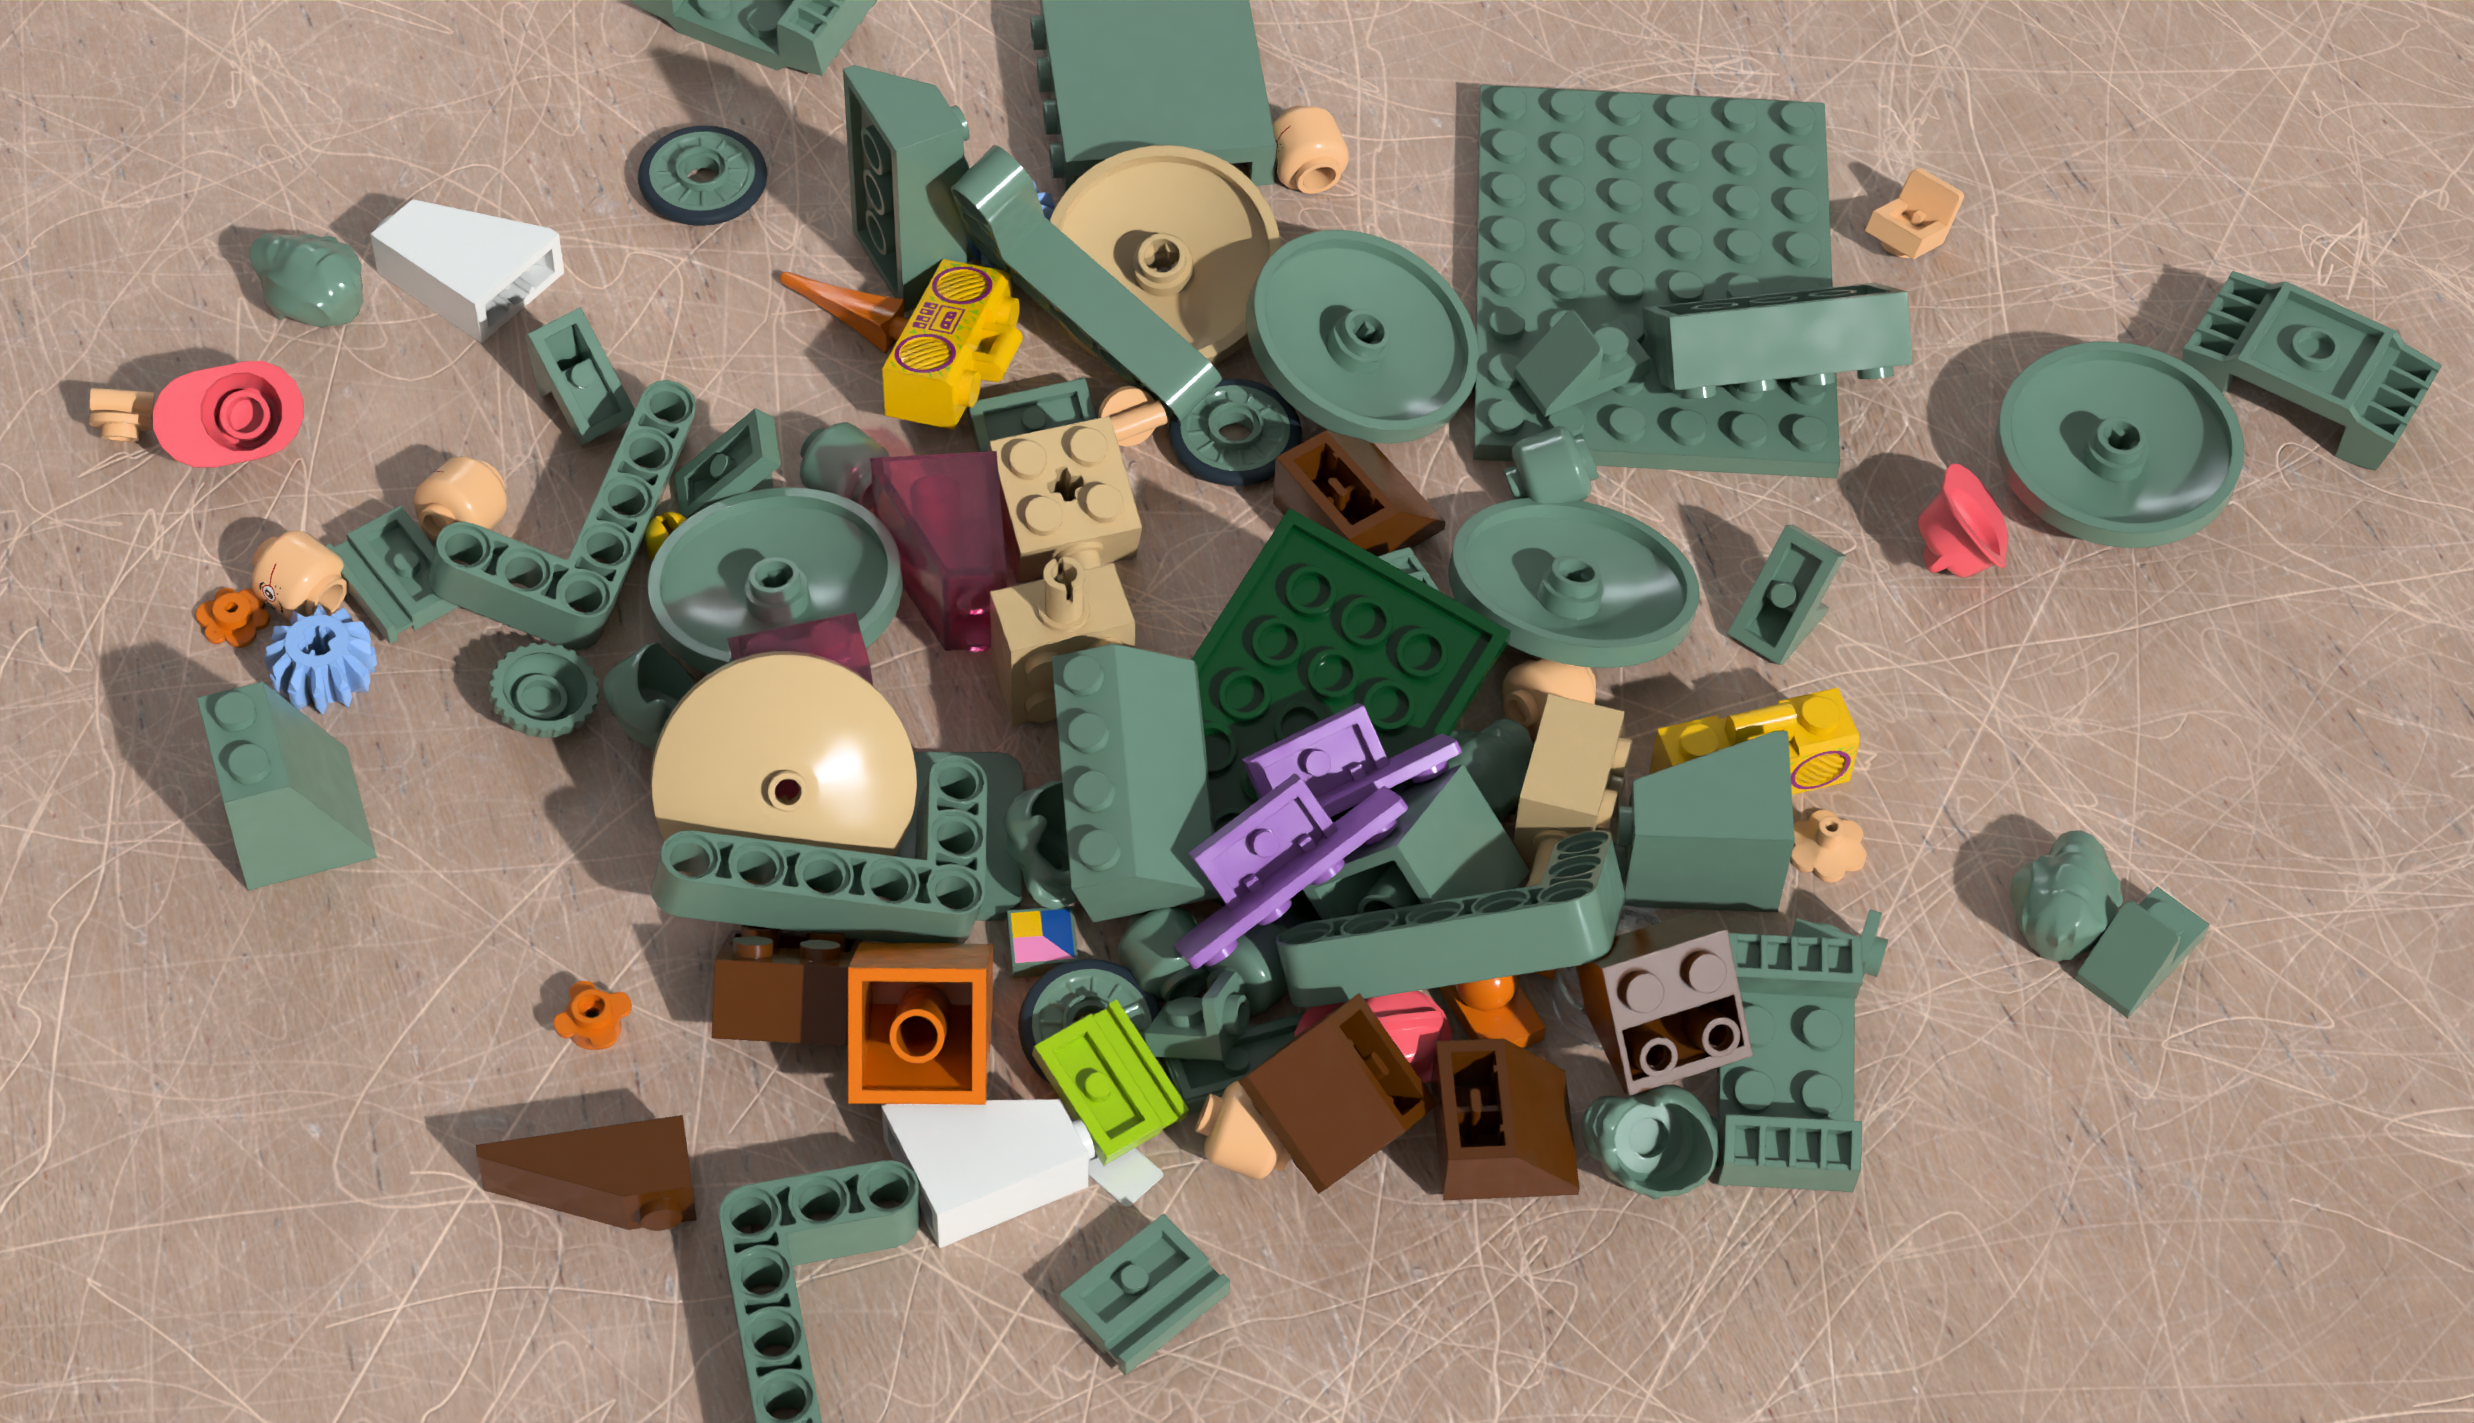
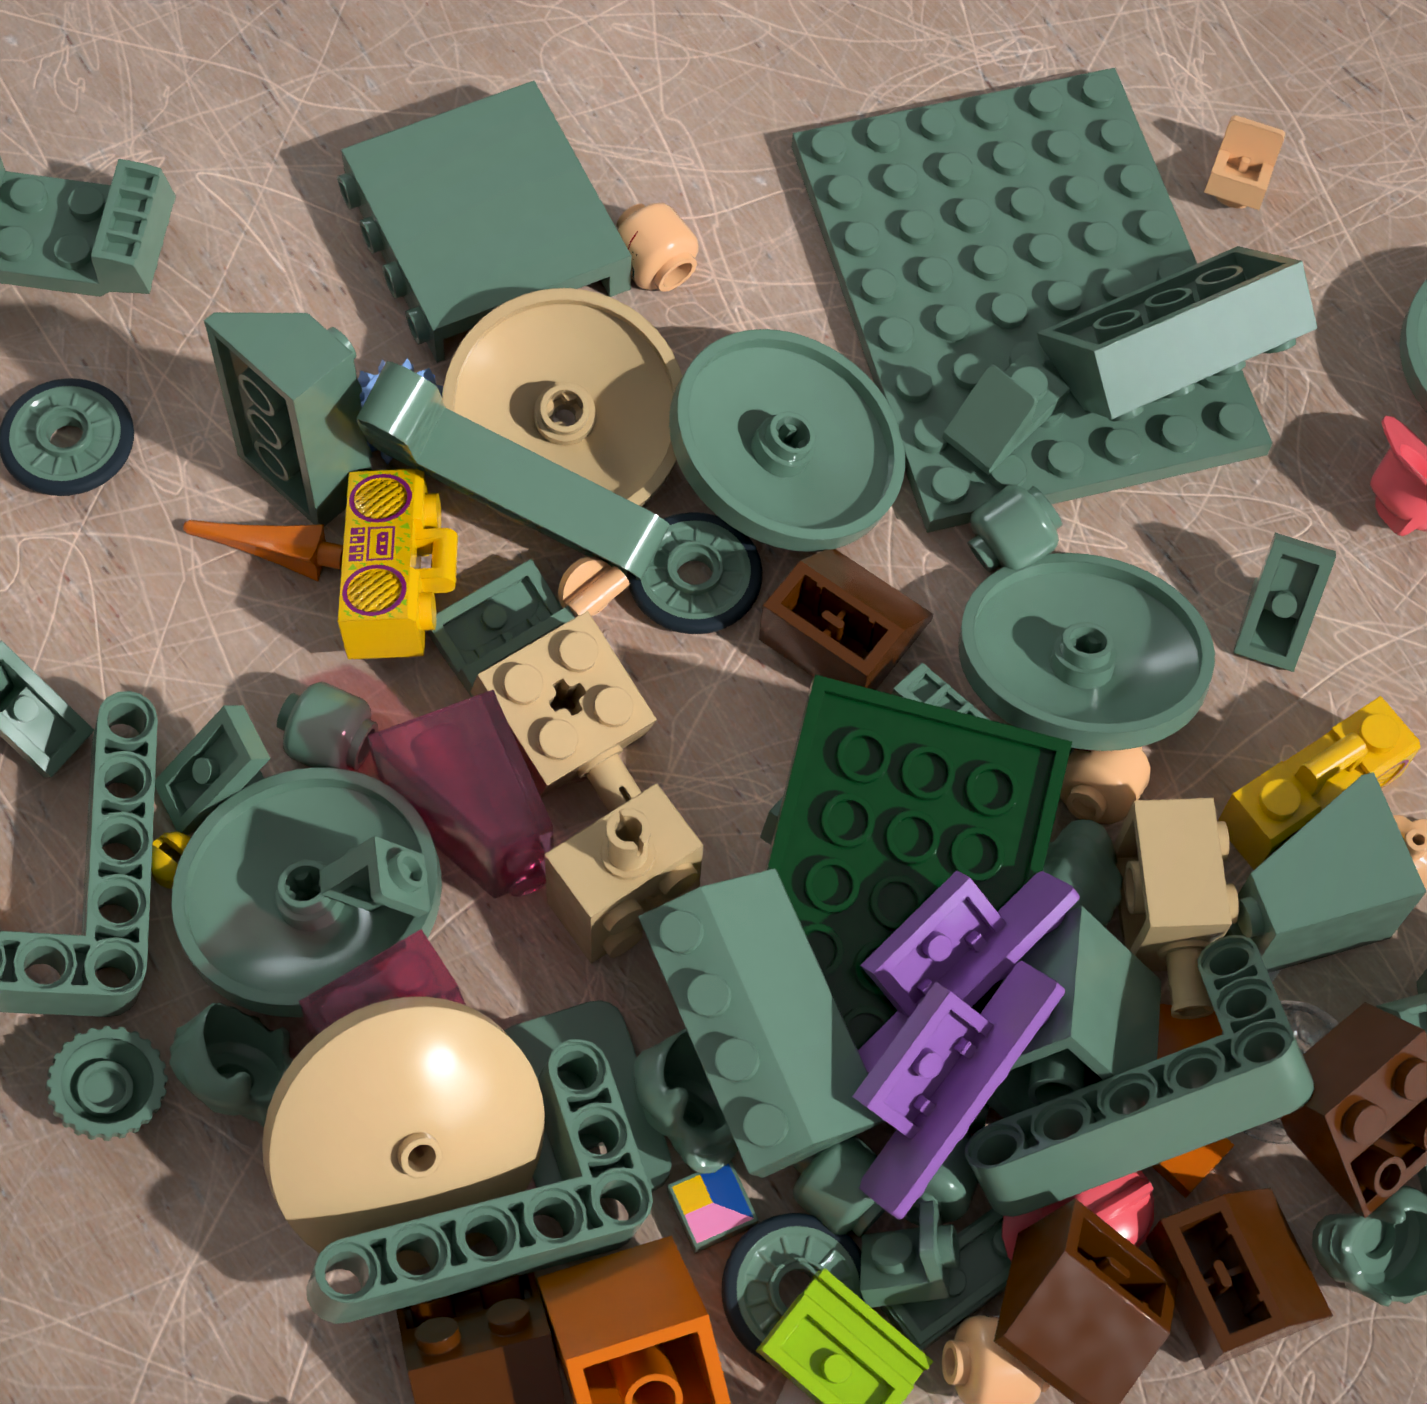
camera: 20 degrees left, 10 degrees up
(838, 579) = (378, 876): none -> sand green bracket

